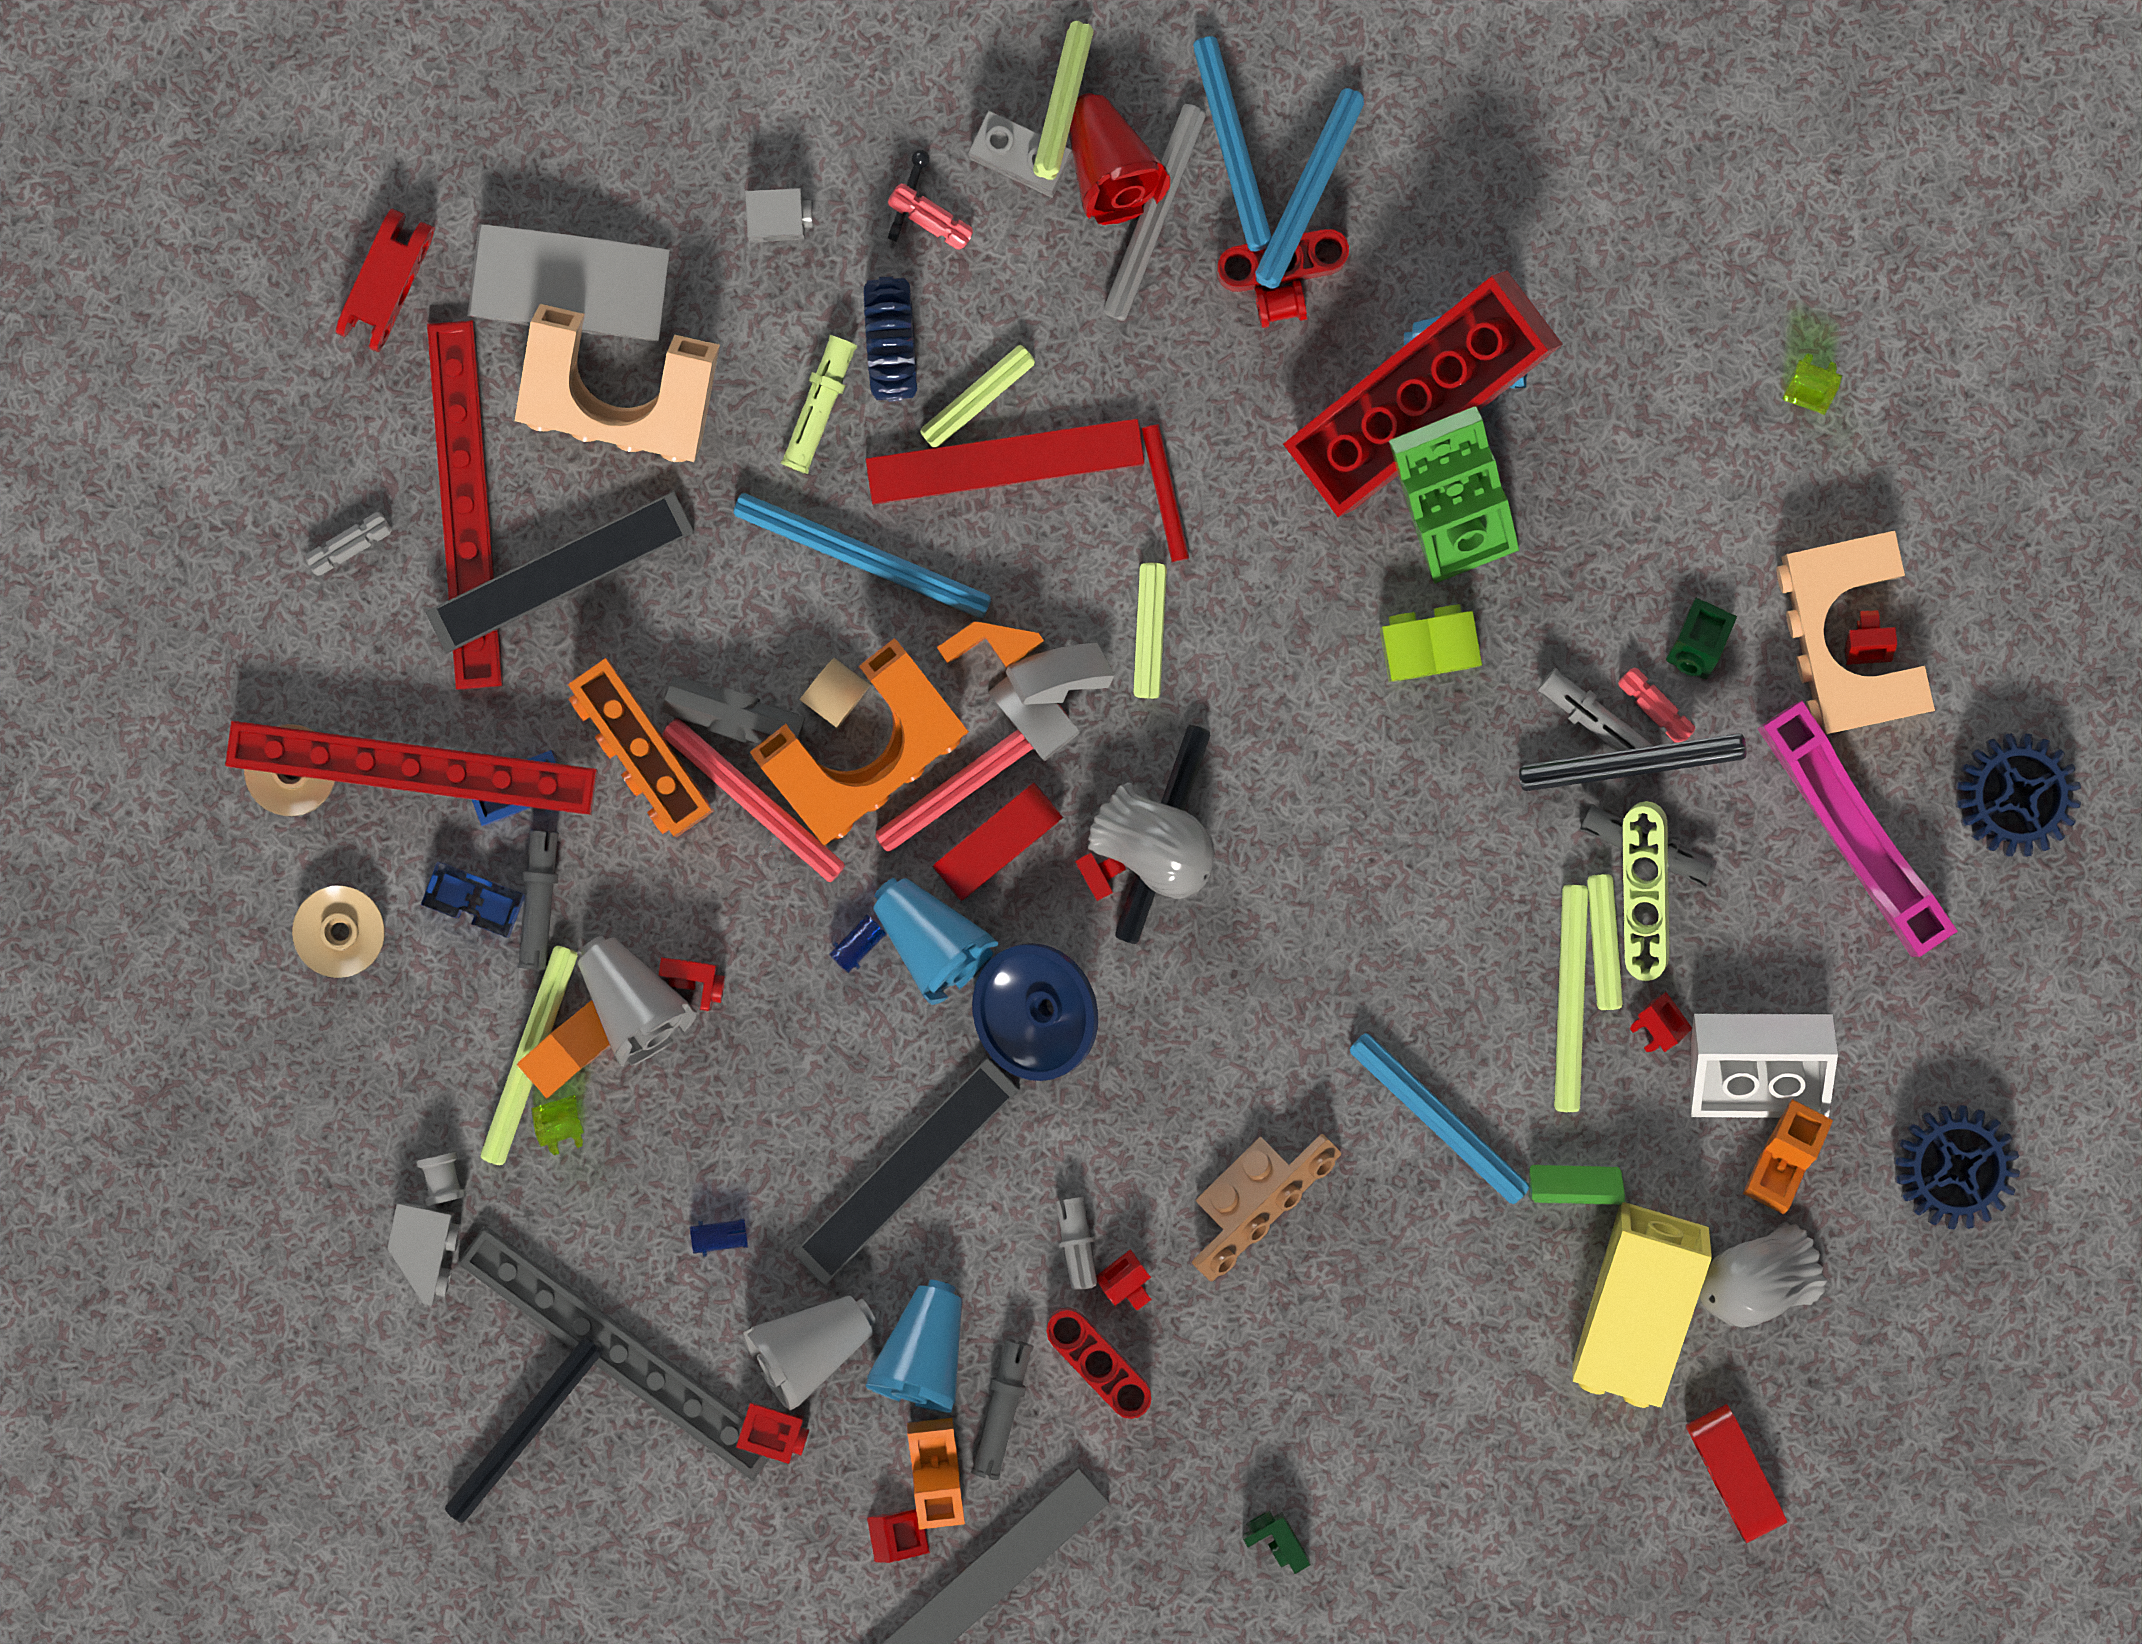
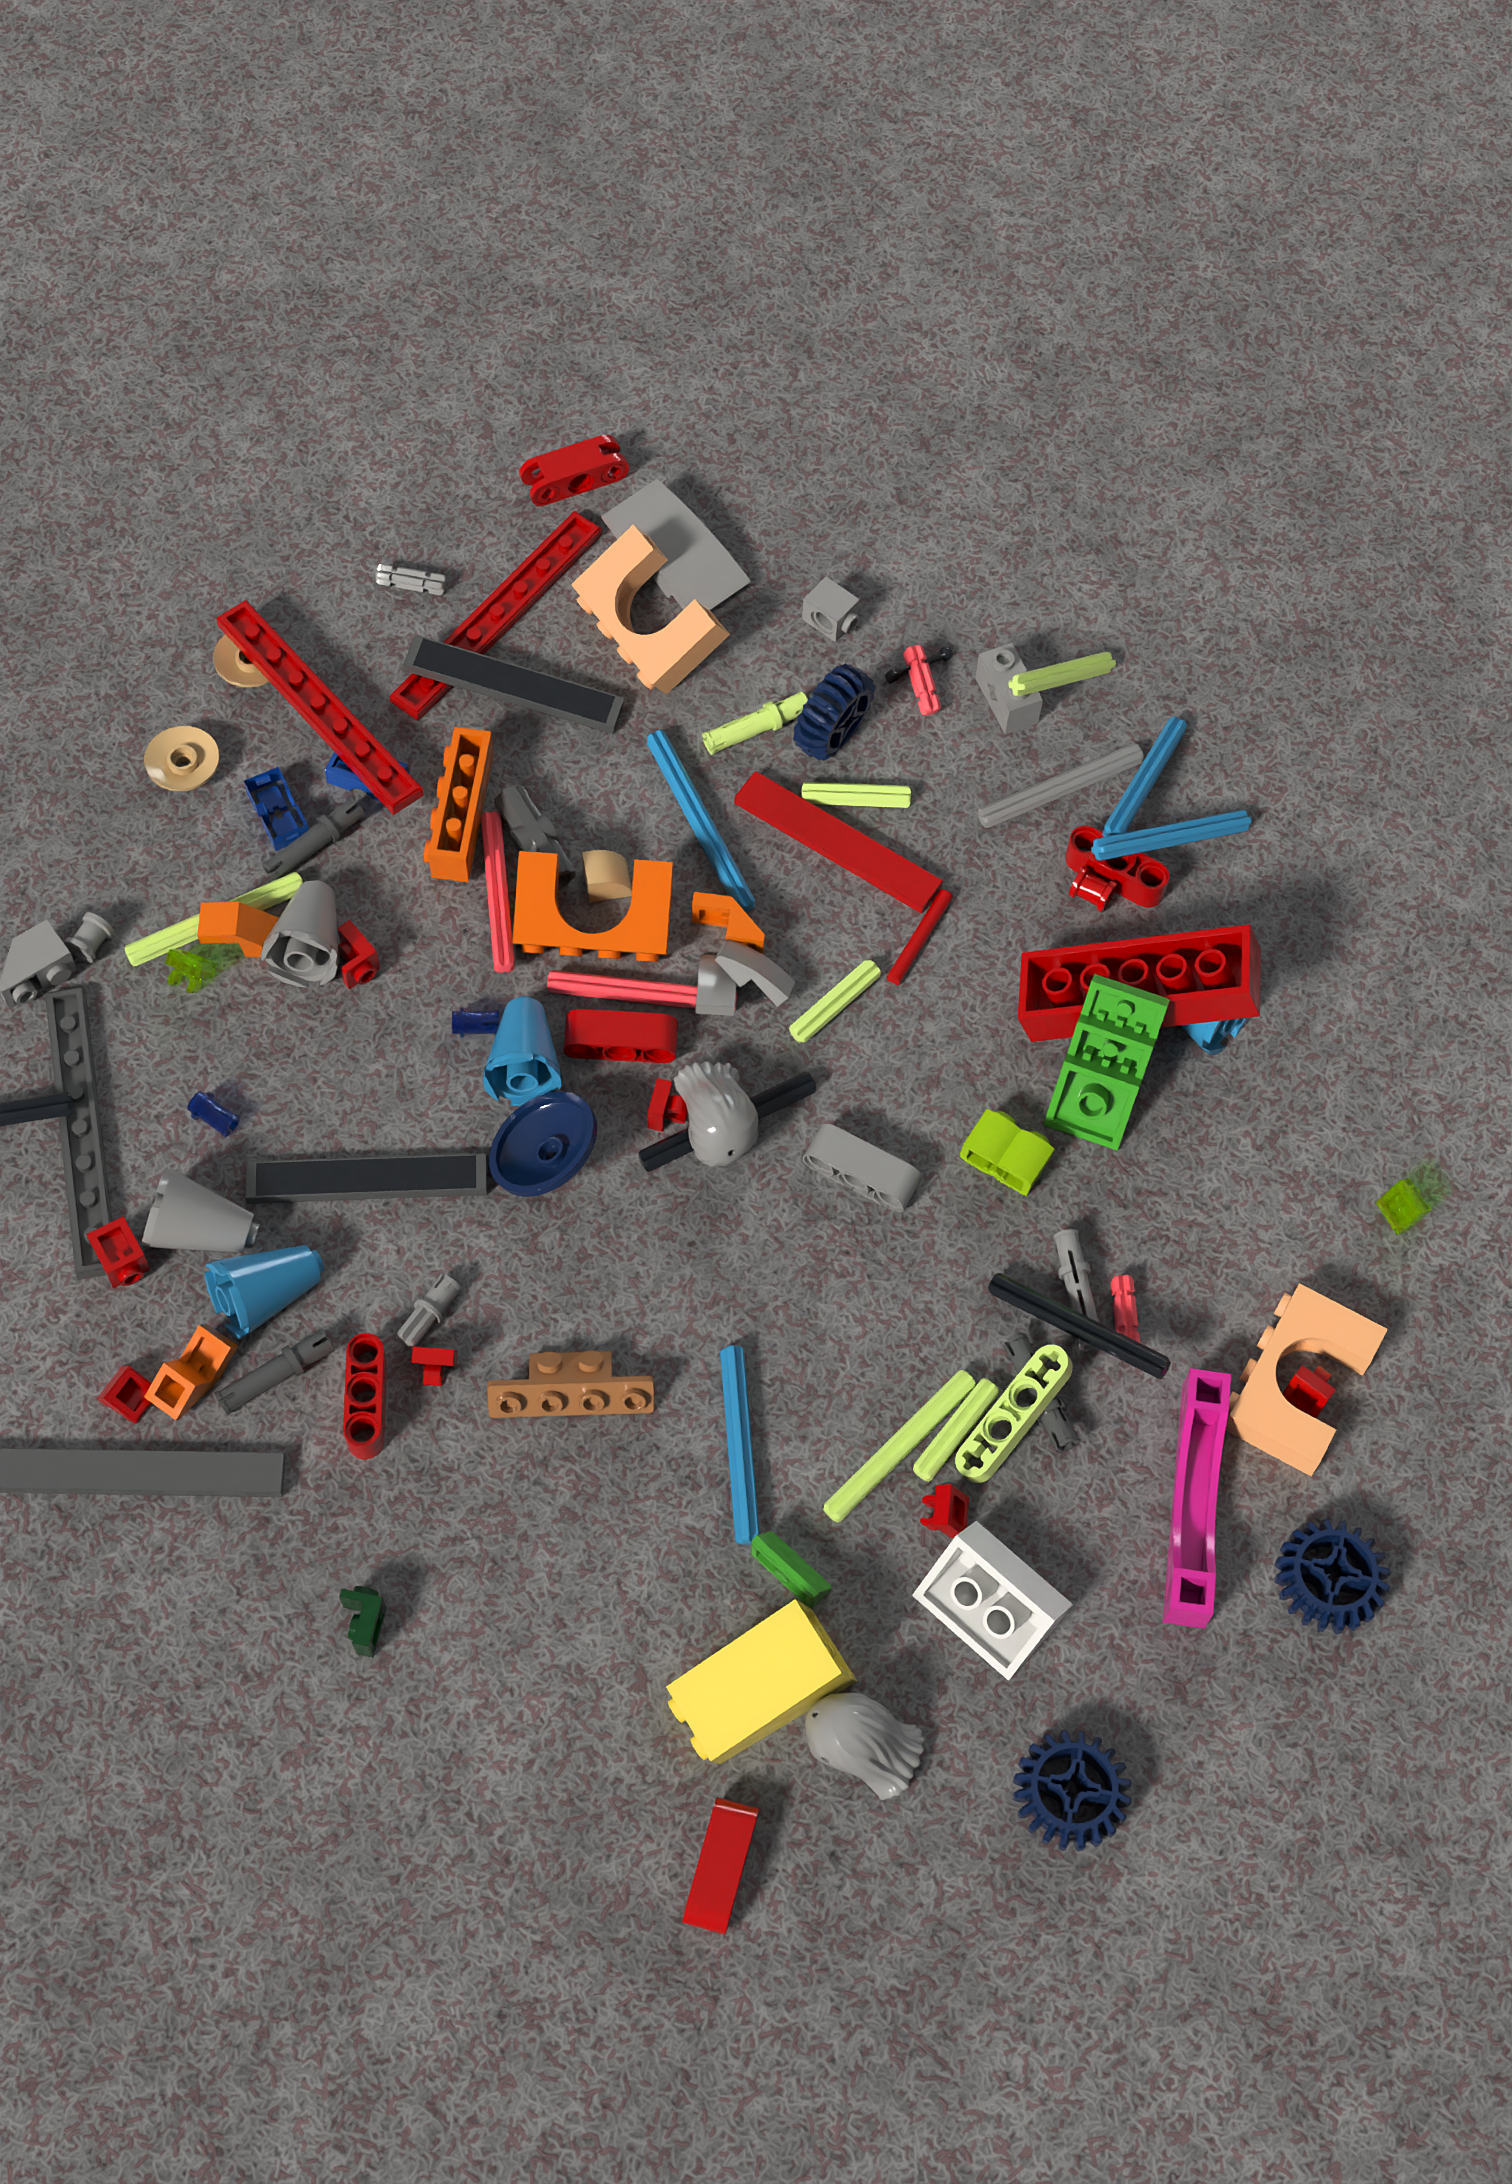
camera: 40 degrees right, 25 degrees down
(1112, 163) = (1058, 733): red cone -> none
(1319, 775) = (862, 1166): none -> light grey beam
(1701, 639) = (1192, 1295): dark green bracket -> none
(1787, 1155) = (956, 1677): orange slope -> none

